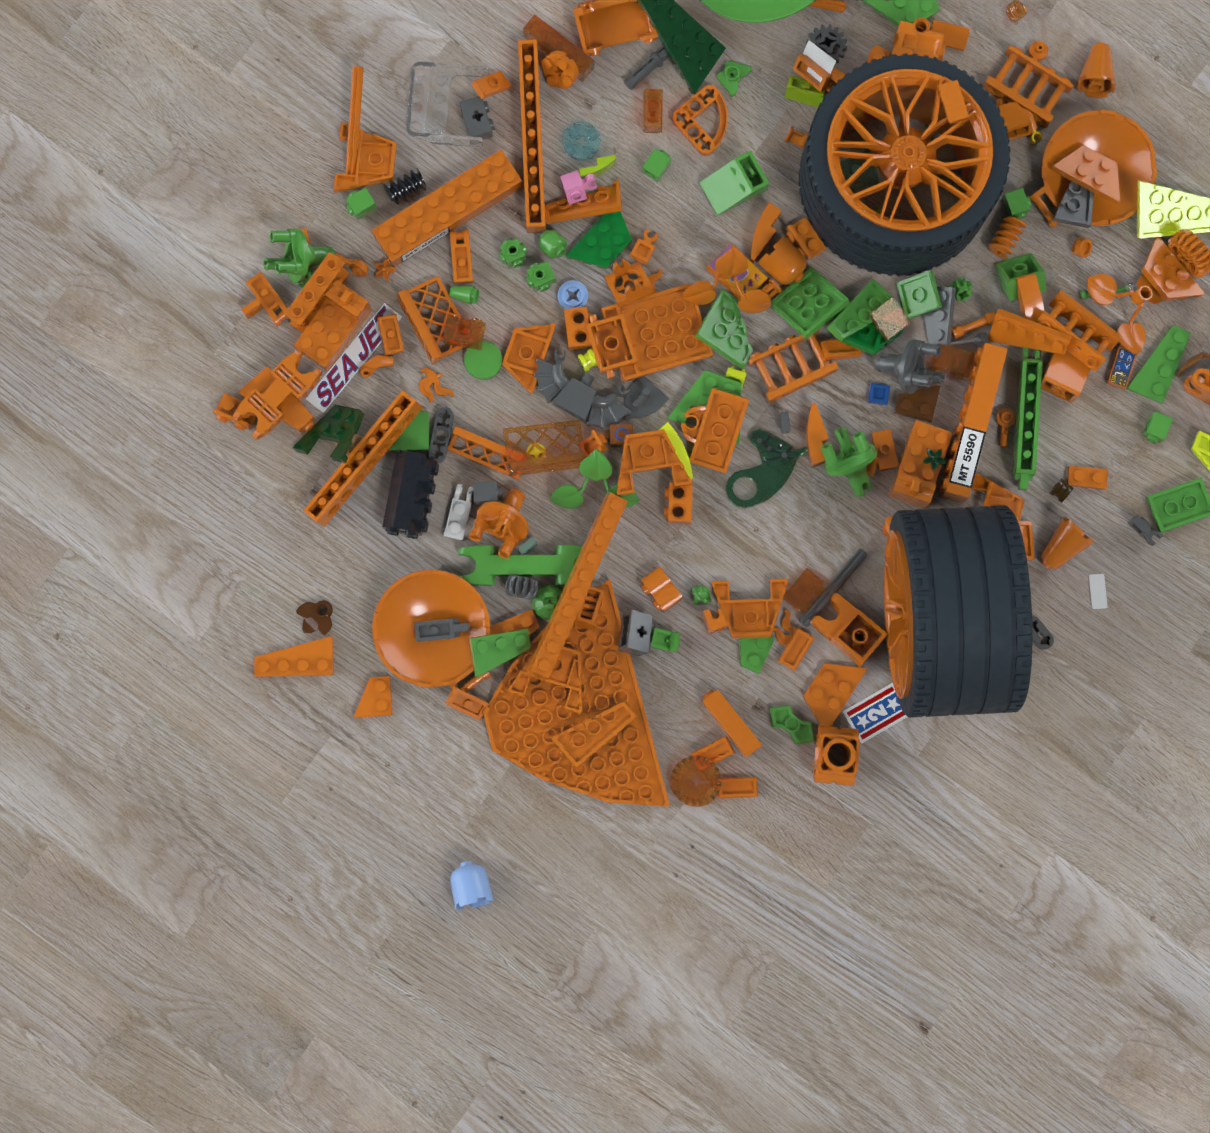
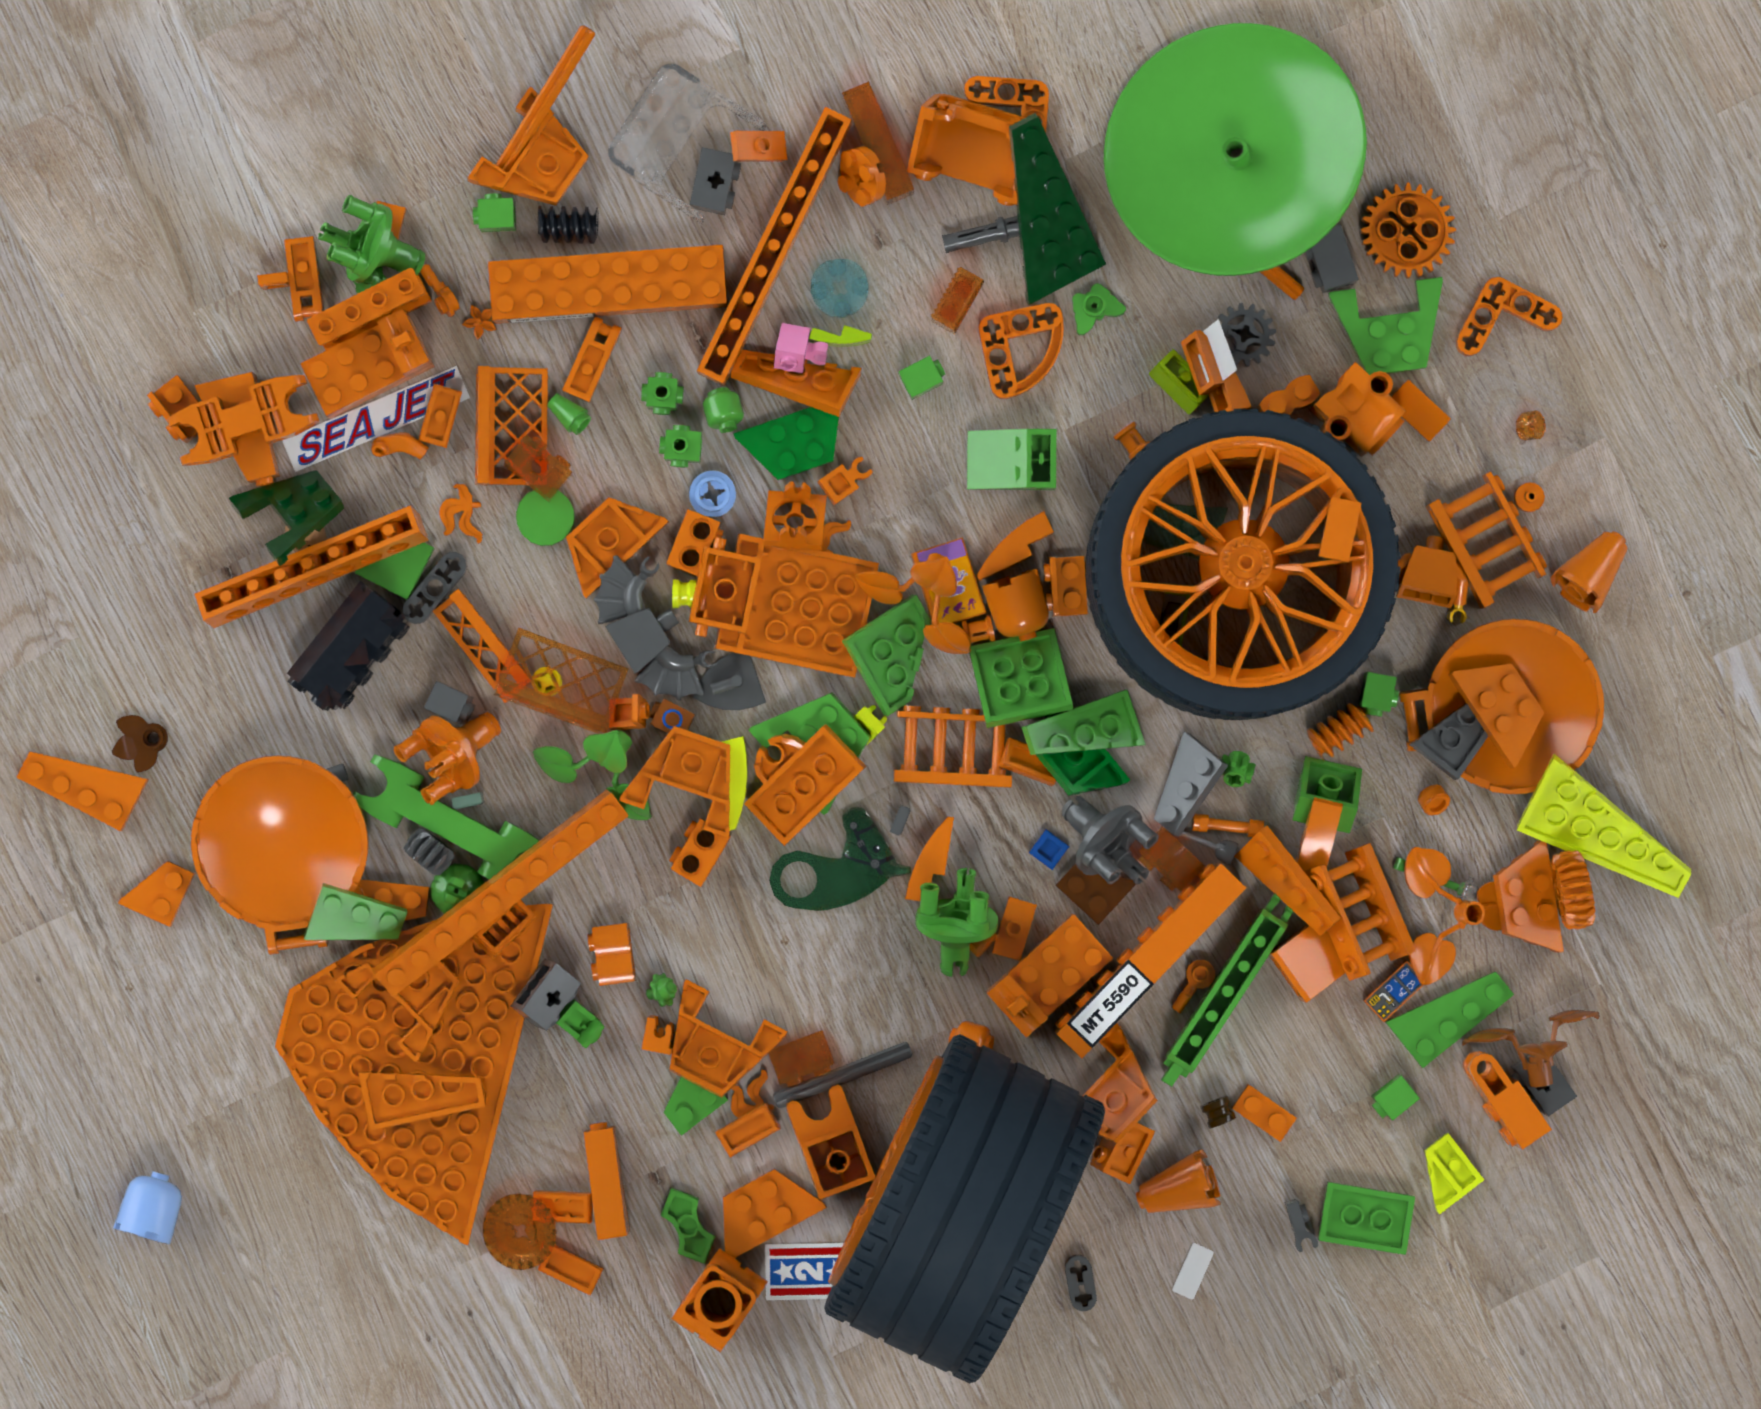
camera: 35 degrees right, 5 degrees up
(439, 629) = (291, 849): dark grey hinge -> none
(458, 515) = (400, 708): white hinge -> none
(466, 703) = (274, 965): orange plate -> none
(889, 318) = (1117, 757): clear orange piece -> none
(919, 294) = (1175, 746): bright green tile -> none
(934, 459) = (1067, 980): dark green plant -> none

